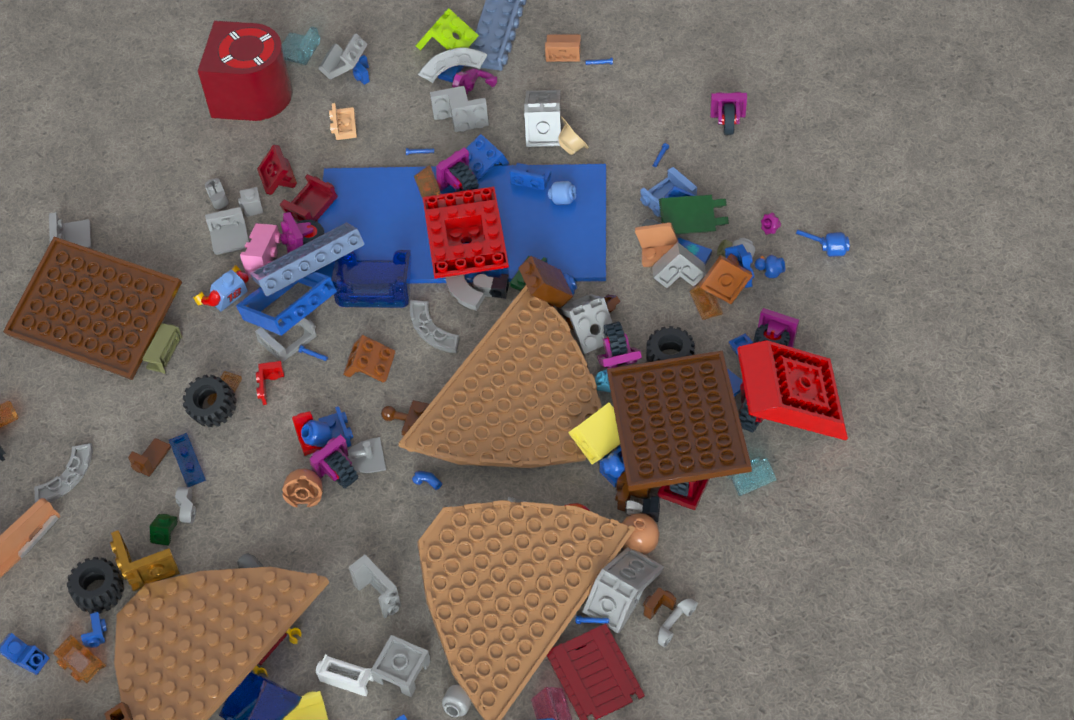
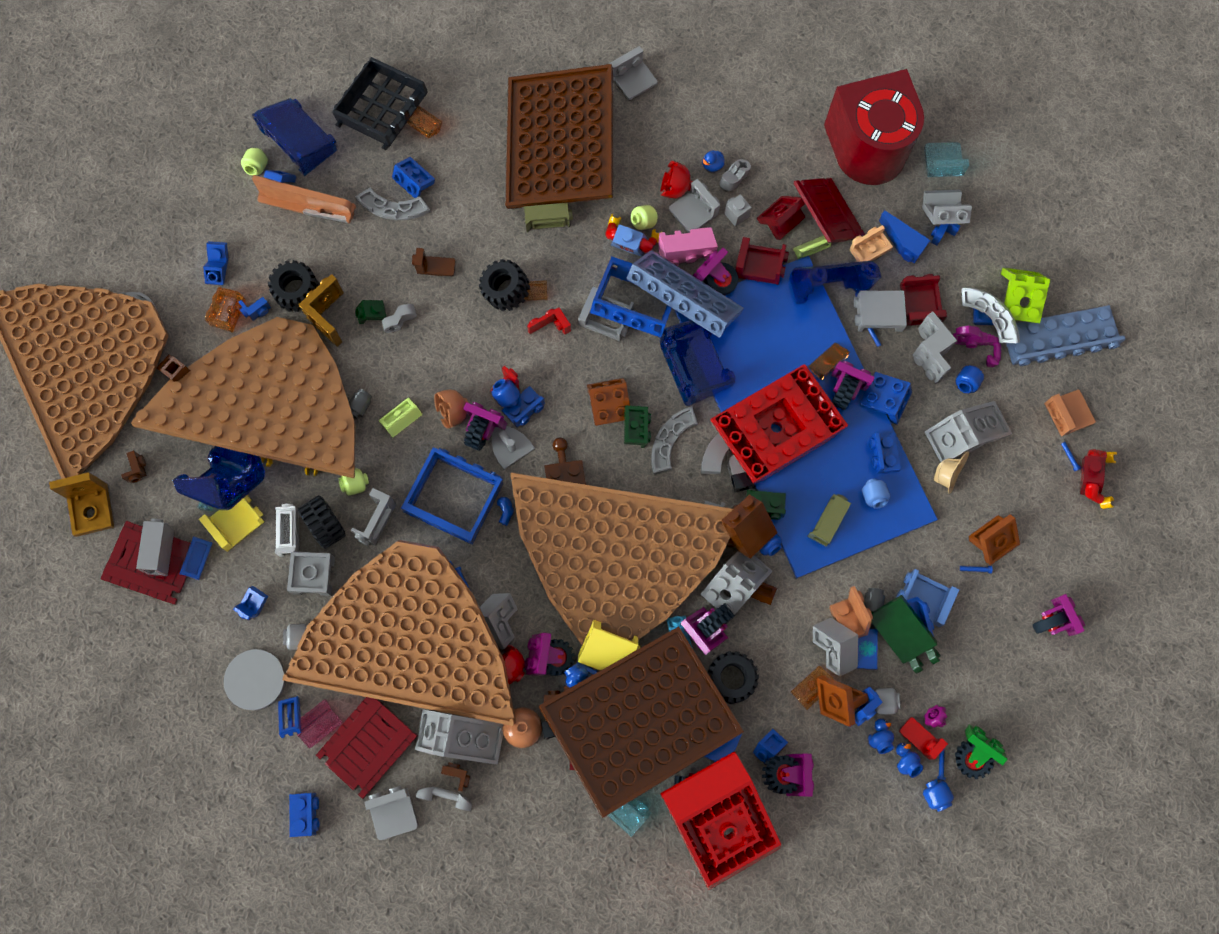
camera: 60 degrees right, 20 degrees up
(49, 447) = (412, 177): none -> blue bracket
(187, 460) = (445, 296): clear blue tile -> none
(193, 203) = (713, 161): none -> blue animal
(193, 232) = (678, 179): none -> red cylinder
(214, 266) = (644, 217): none -> yellowish green head
(285, 539) = (400, 417): none -> yellowish green slope
(293, 135) = (829, 209): none -> dark red door
(302, 349) = (598, 347): blue piece -> none
(317, 161) = (811, 247): none -> yellowish green slope
(329, 599) = (354, 485): none -> yellowish green head
(354, 95) = (904, 238): none -> blue slope
(355, 631) = (321, 522): none -> black tyre
(362, 140) = (853, 273): none -> clear blue windscreen
(371, 493) = (459, 463): none -> blue window
(404, 135) = (880, 310): none -> light grey panel
(406, 344) = (636, 425): none -> dark green bracket
(409, 107) = (922, 298): none -> dark red panel
(498, 99) = (969, 379): none -> blue head
(568, 232) = (830, 520): none -> olive window
(579, 620) = (416, 721): blue piece -> none
(581, 485) = (548, 656): none -> magenta plate
(625, 49) = (1093, 476): none -> torso
(641, 129) = (996, 538): none -> dark orange bracket
(669, 670) = (392, 813): none -> light grey bracket
(721, 248) = (882, 681): olive tile -> none
(786, 240) = (922, 739): none -> red bracket
(800, 252) = (910, 761): none -> blue animal
(812, 203) = (978, 754): none -> plate

